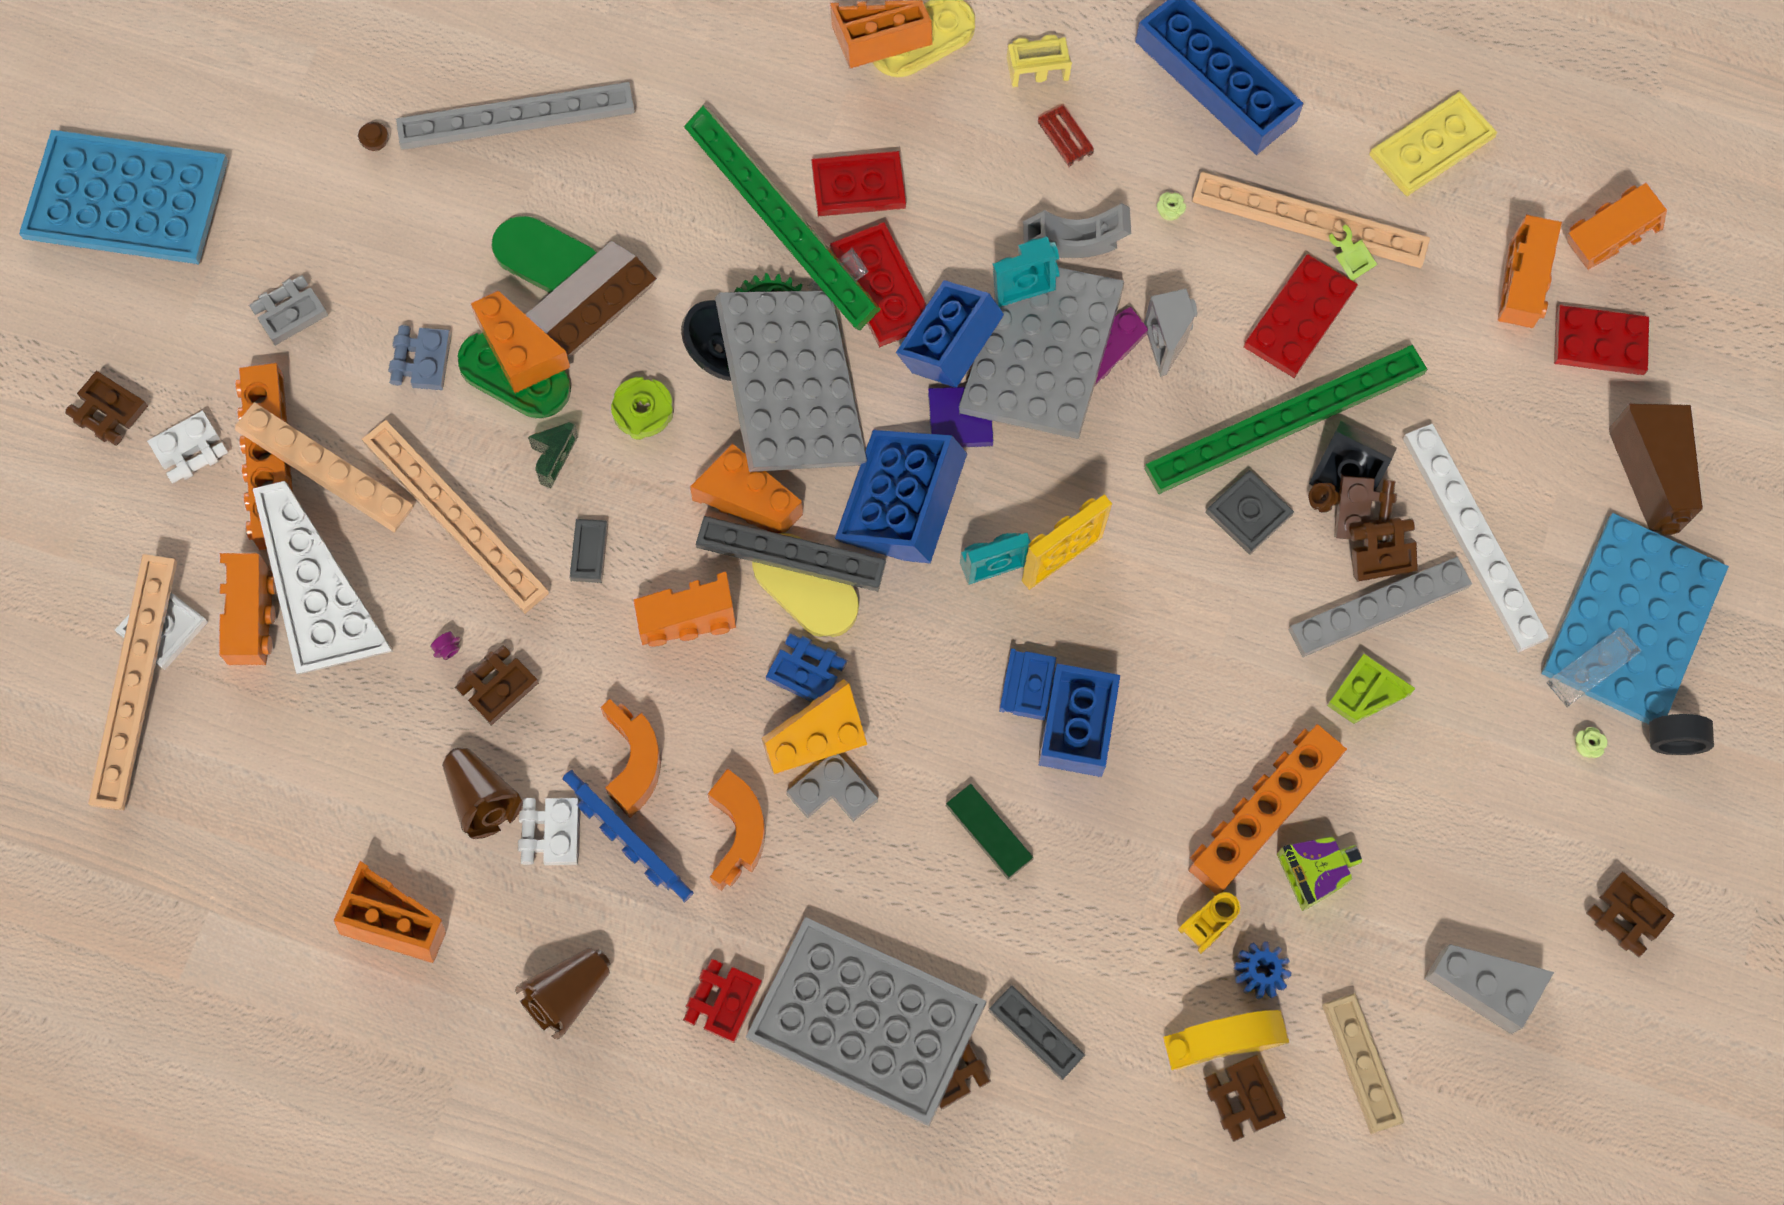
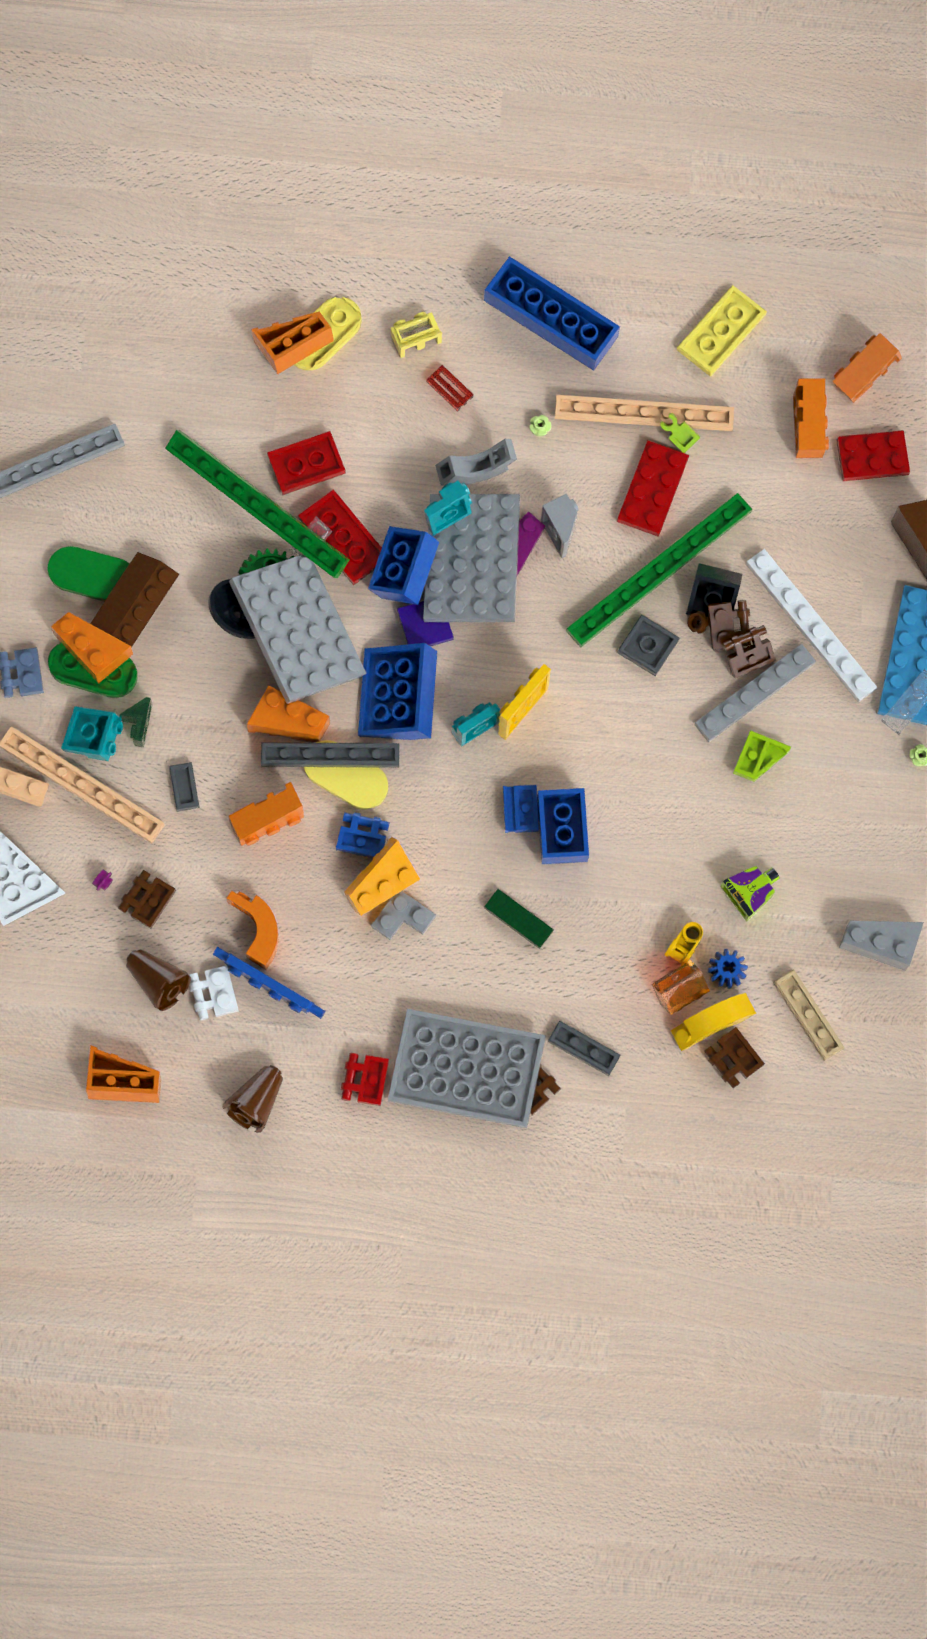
camera: 15 degrees left, 5 degrees up
(488, 453) = (92, 733): none -> teal plate
(645, 391) = (196, 684): lime plate -> none
(743, 808) = (343, 943): orange arch -> none
(1191, 980) = (680, 987): none -> clear orange brick
(1323, 751) = (683, 909): orange brick -> none

